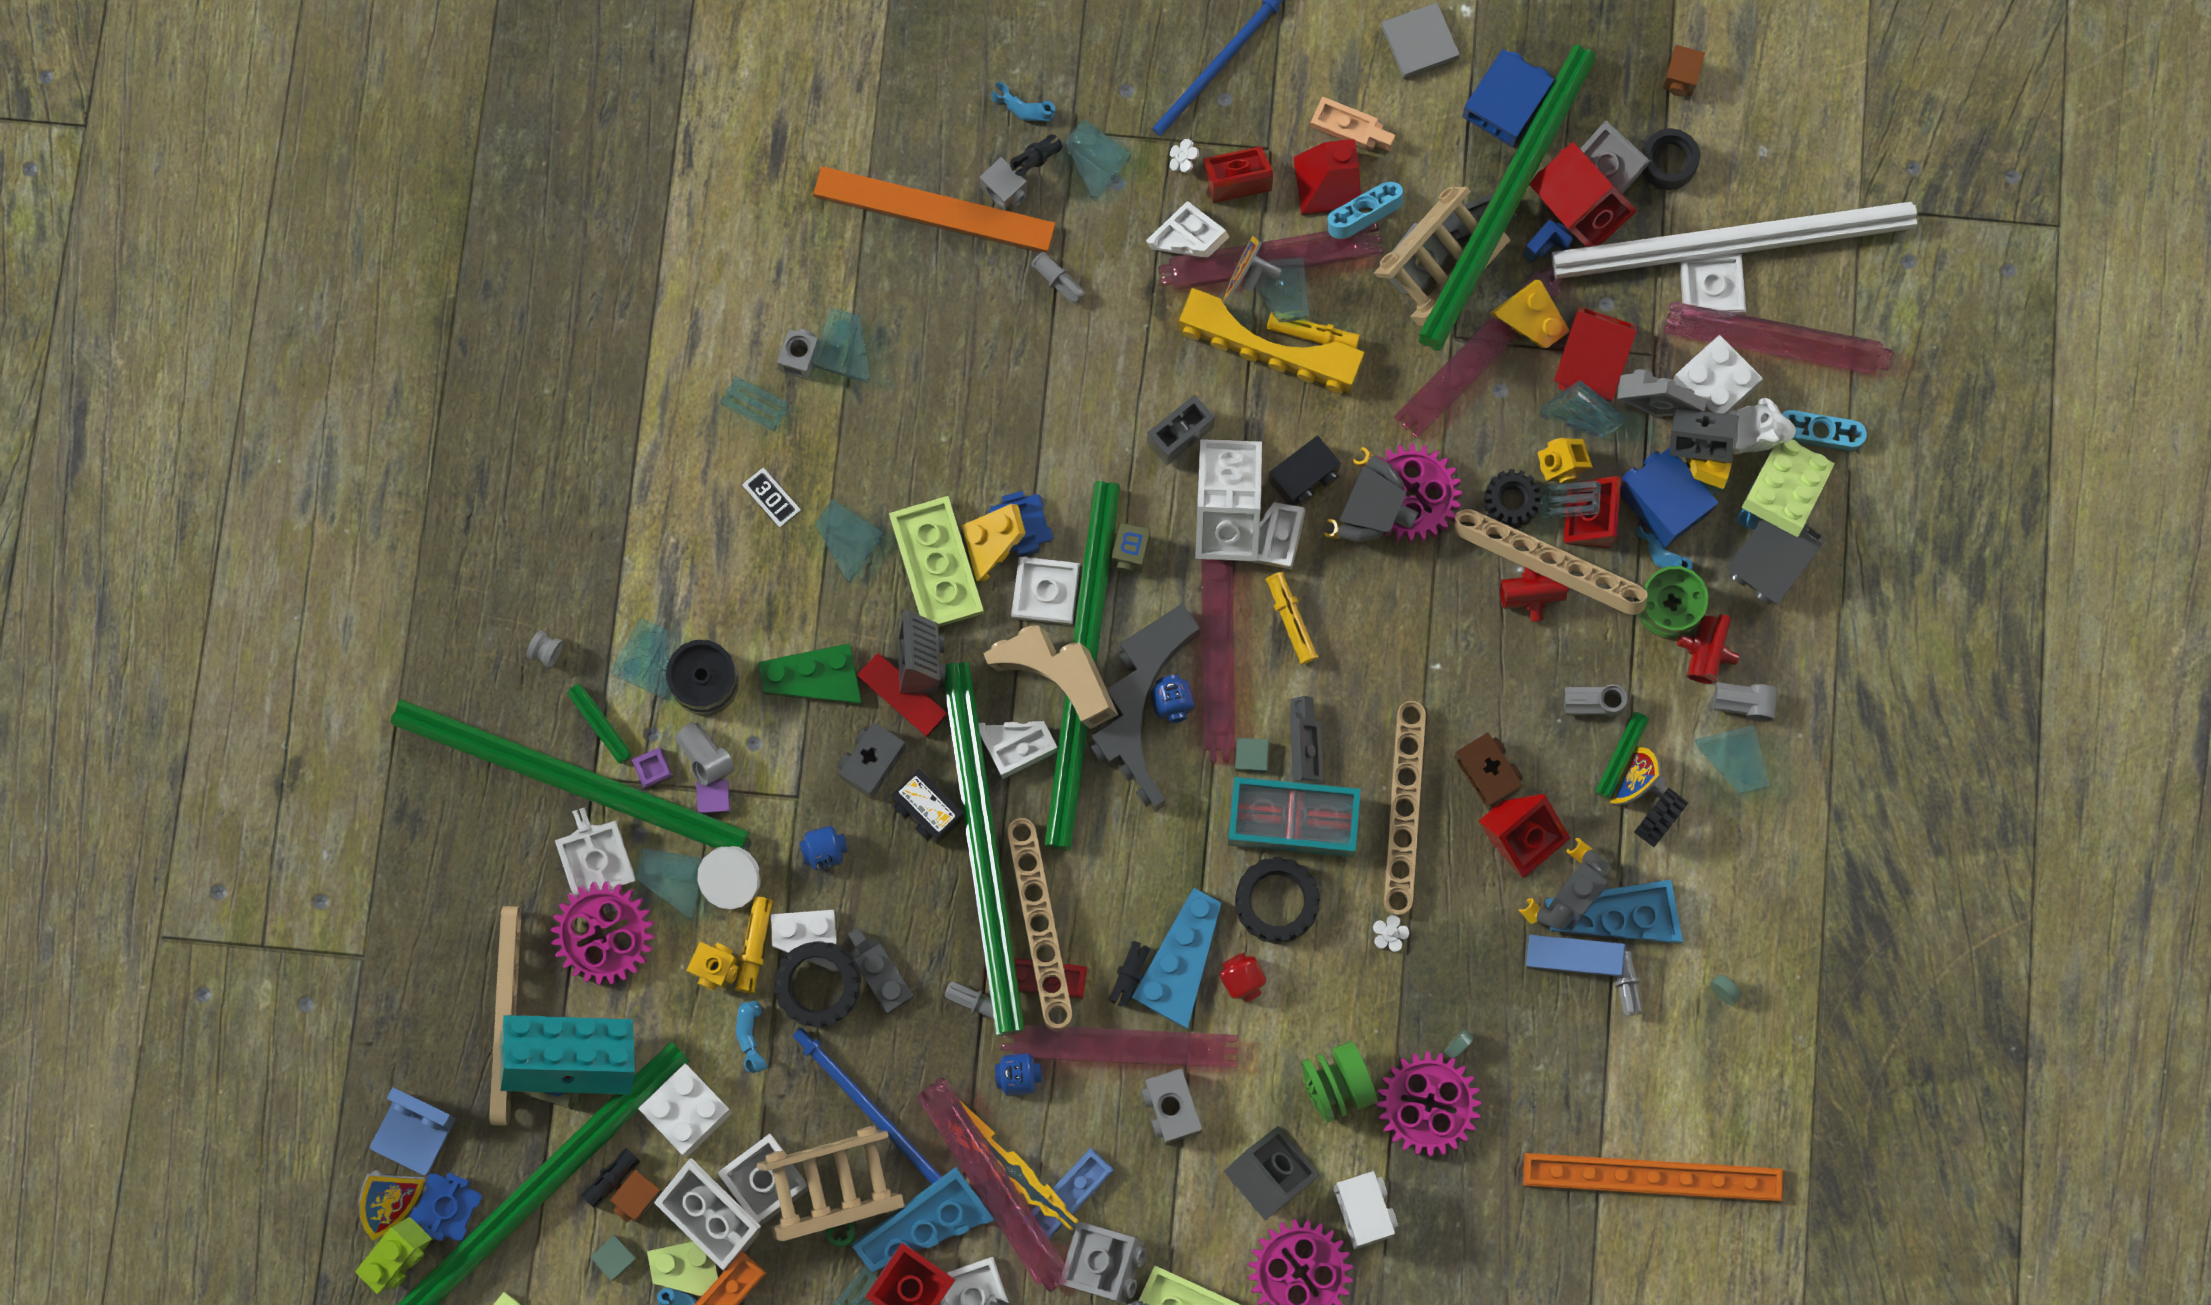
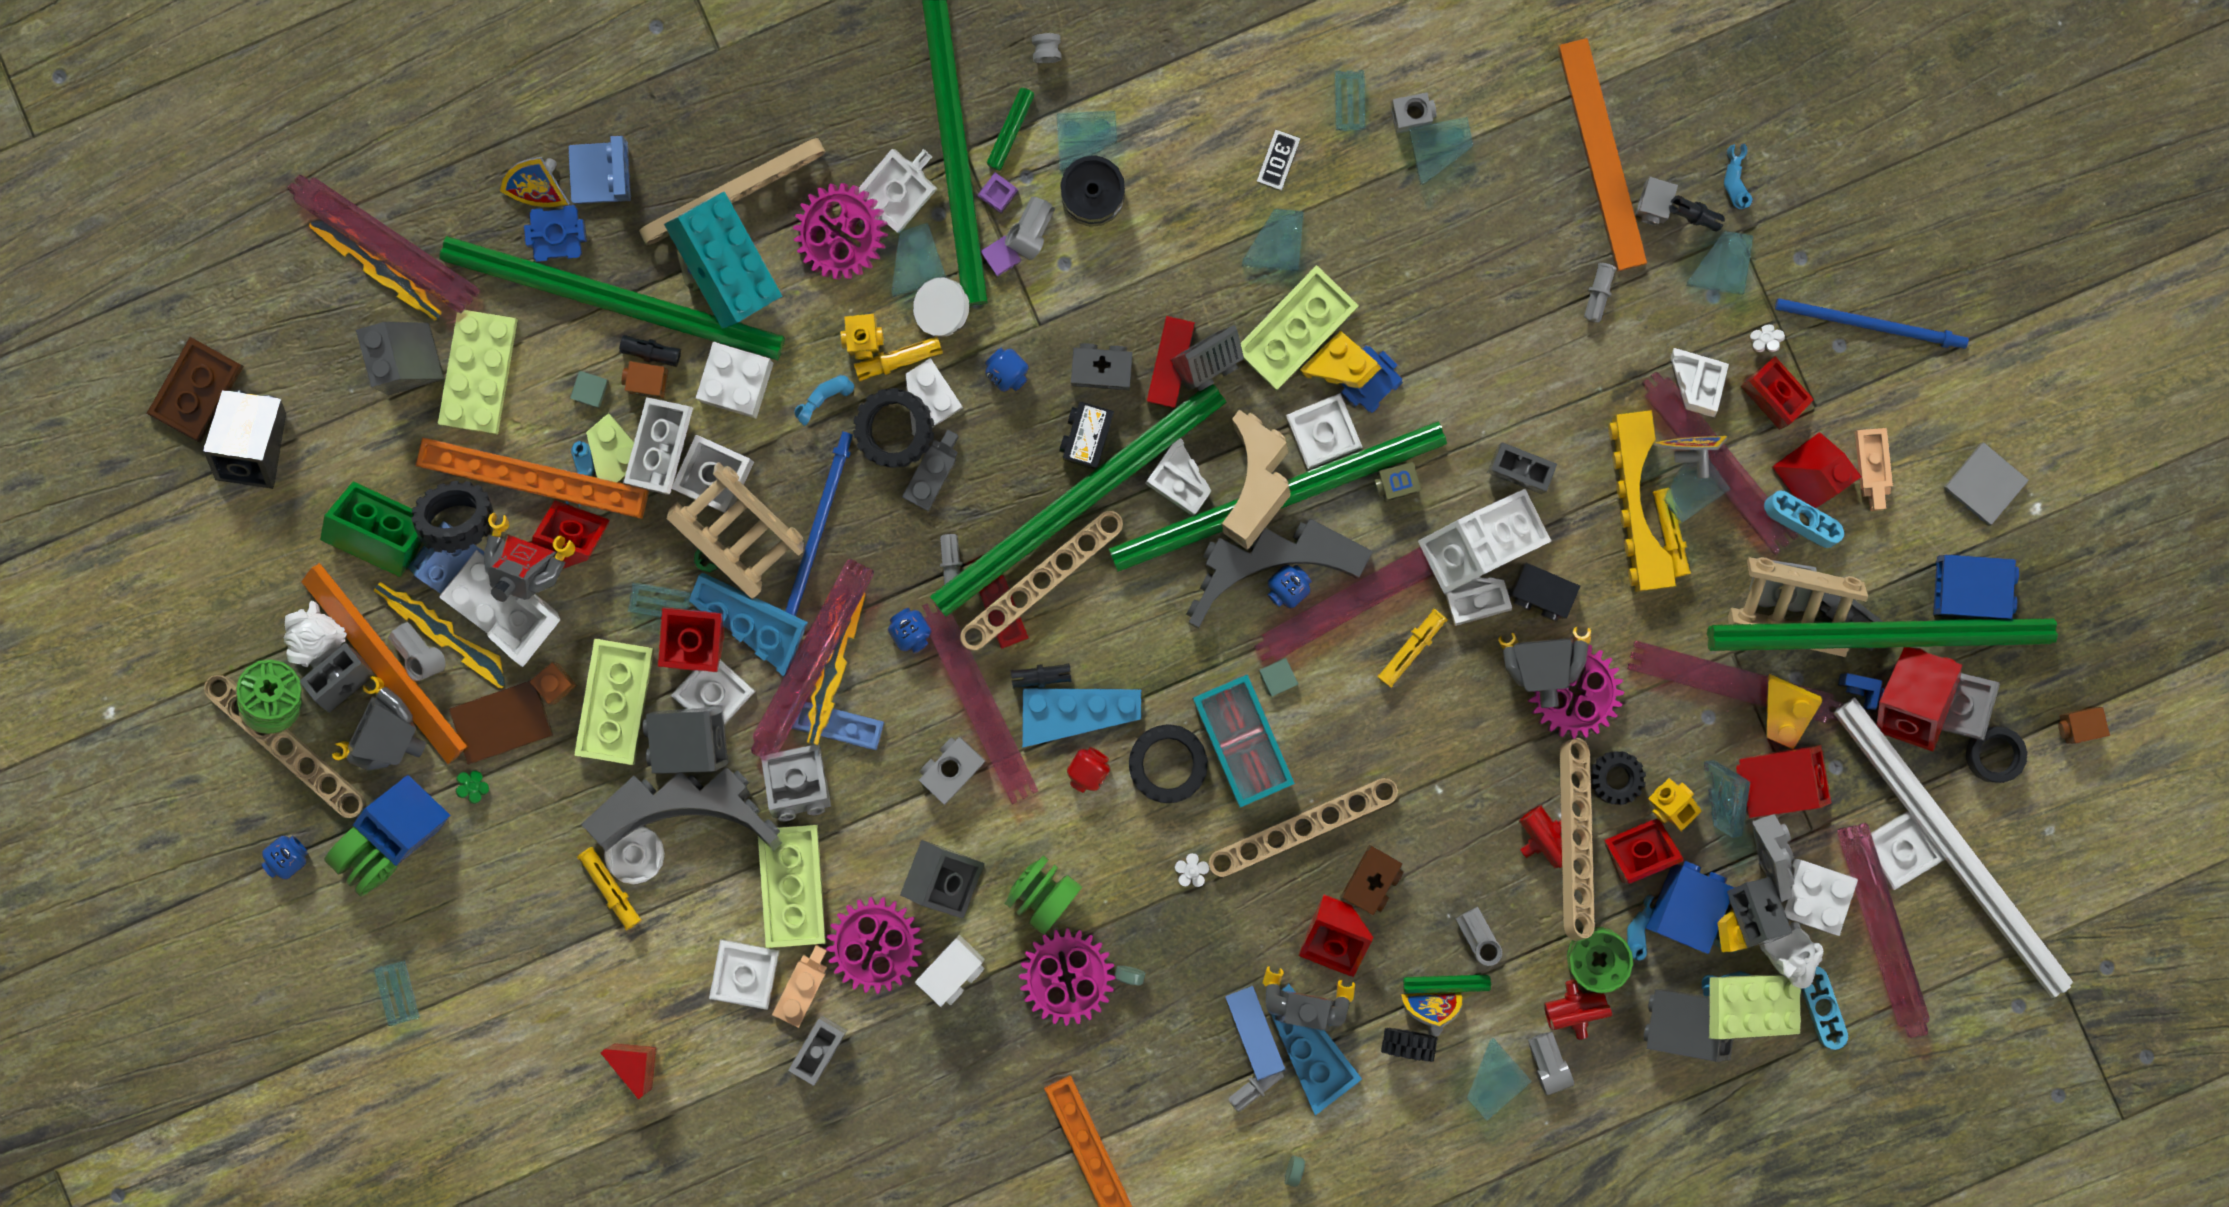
camera: 60 degrees right, 10 degrees up
(393, 1256) = (494, 215): lime brick -> none
(814, 674) = (1147, 280): green wing -> none
(1305, 742) = (1313, 716): dark grey hinge -> none
(1548, 499) = (1633, 808): clear light blue tile -> none

